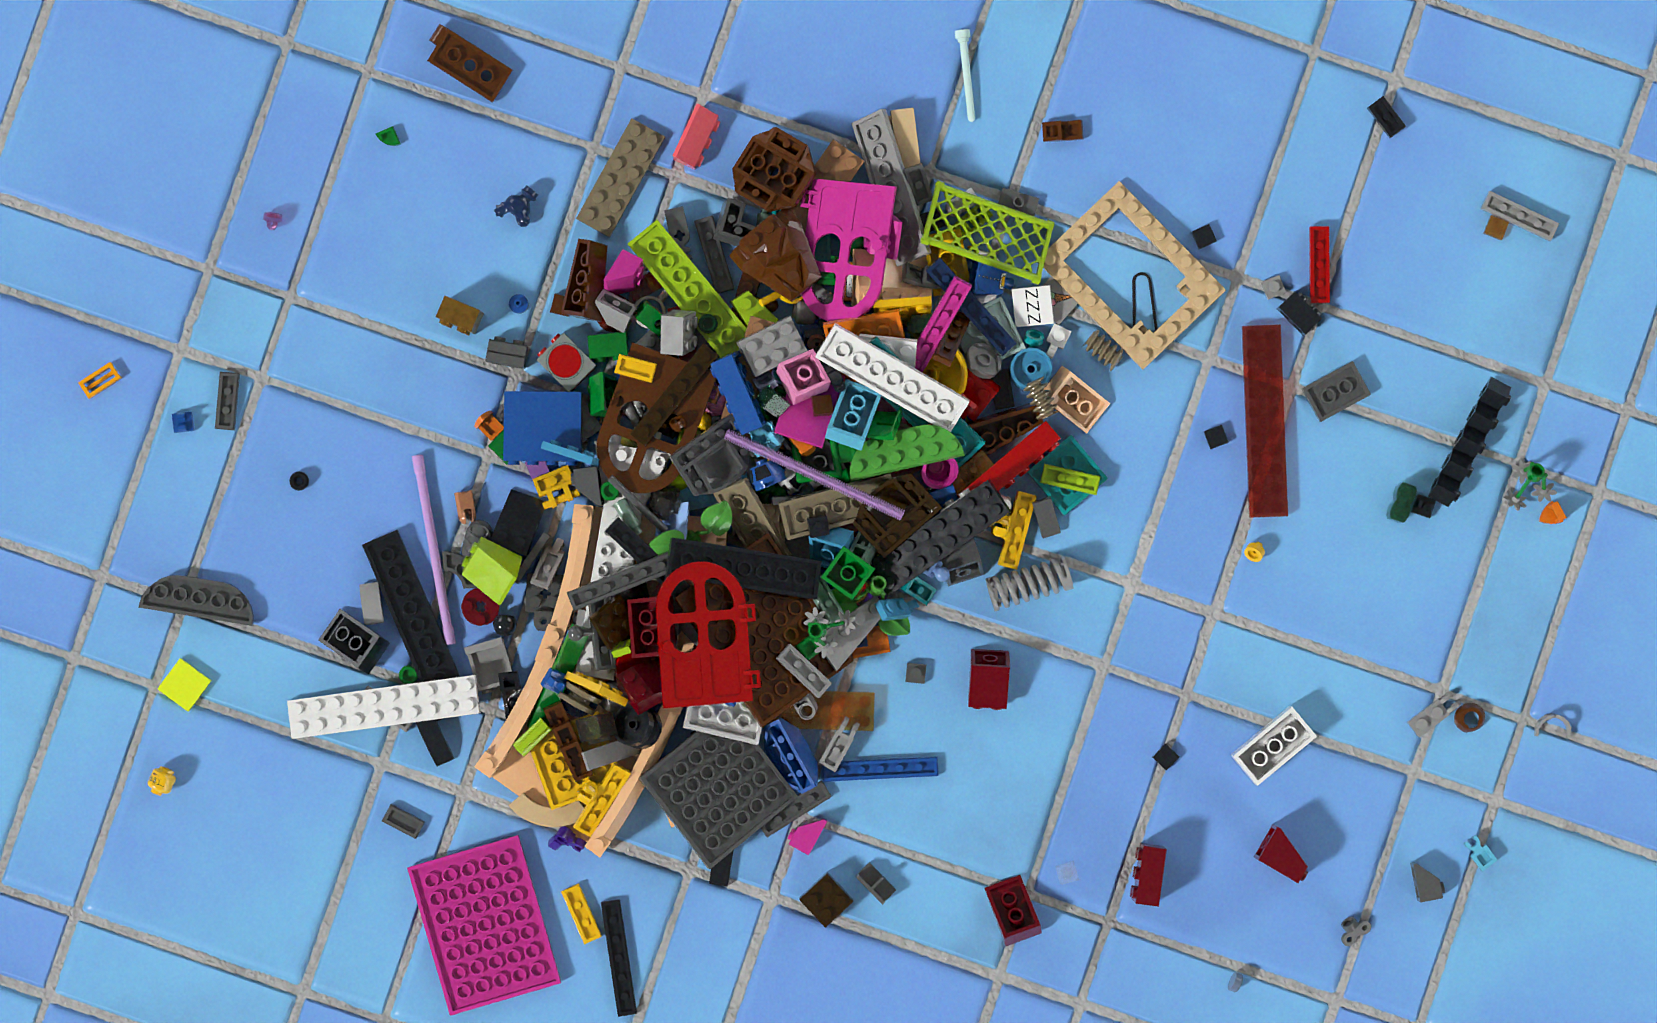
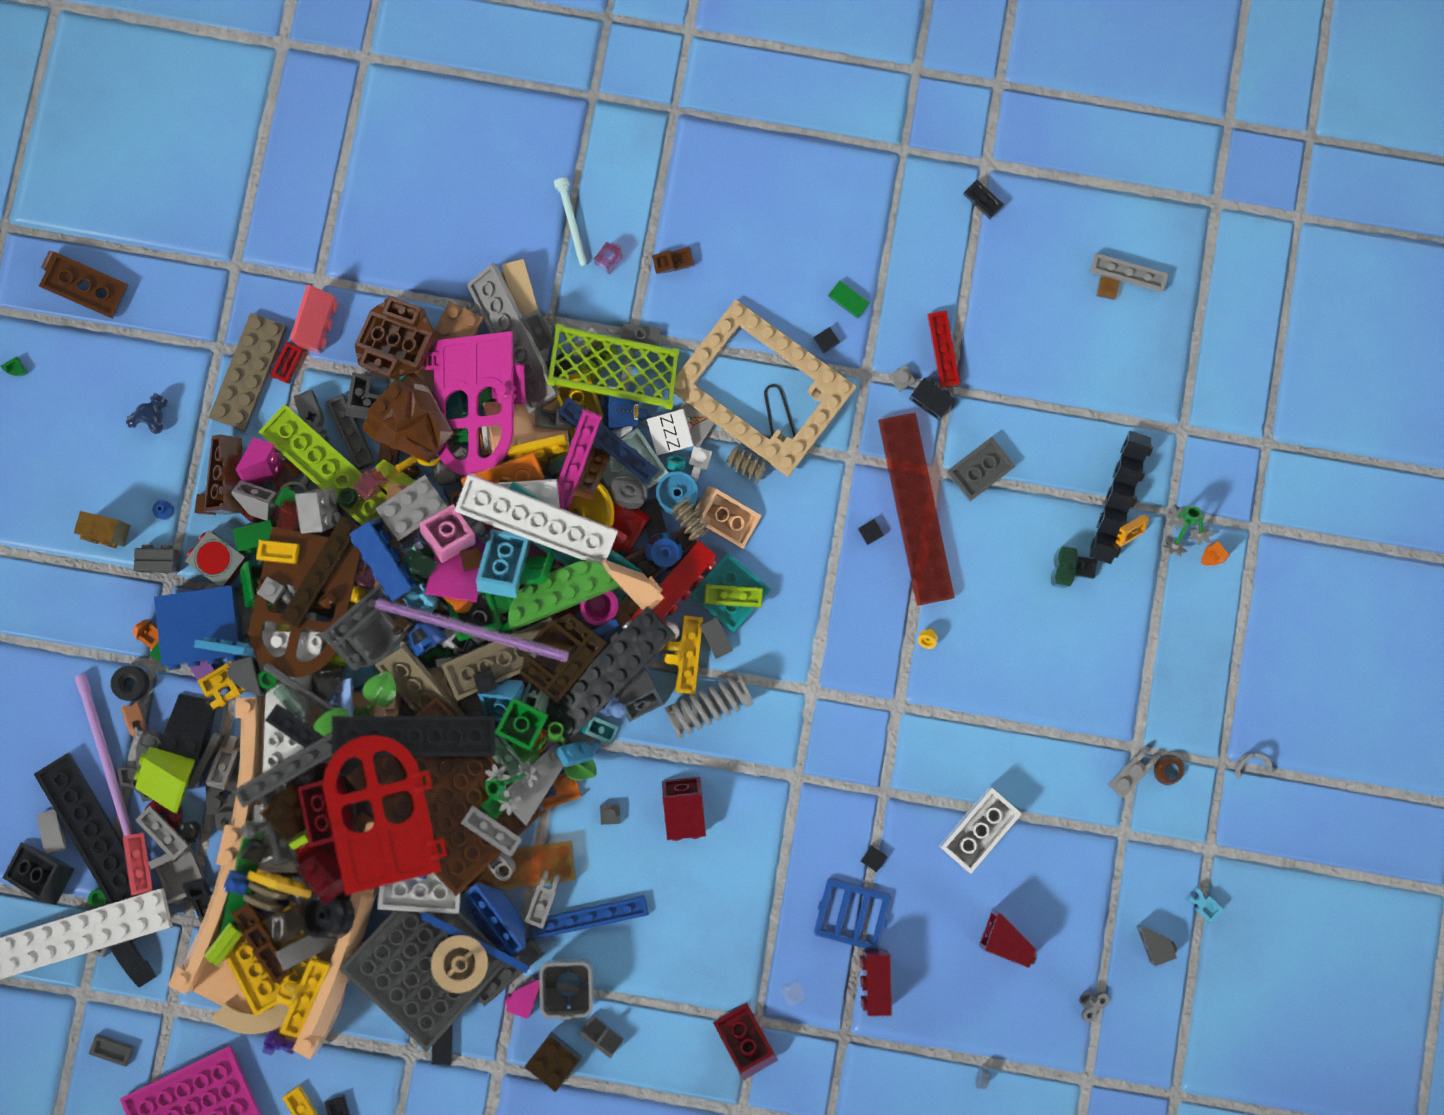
camera: 15 degrees left, 5 degrees down
(453, 647) = (137, 864): none -> coral plate
(465, 460) = (141, 683): none -> black tyre
(482, 622) = (163, 833): none -> light grey plate
(575, 653) = (254, 851): none -> black plate
(624, 405) = (271, 590): none -> light grey plate
(648, 333) = (287, 515): none -> clear red brick
(666, 180) = (287, 379): none -> red tile
(732, 314) = (370, 483): none -> clear pink brick
(746, 459) = (401, 625): none -> dark brown tile
(754, 791) = (459, 964): none -> tan piece
(769, 774) = (488, 949): none -> blue tile
(860, 849) = (555, 1004): none -> light grey piece
(983, 460) = (640, 588): none -> light nougat slope
(993, 122) = (605, 262): none -> window
(1009, 426) = (663, 551): none -> blue cone
(1118, 823) = (837, 934): none -> blue bar
(1232, 198) = (848, 299): none -> green tile
(1475, 477) = (1132, 530): none -> light orange tile

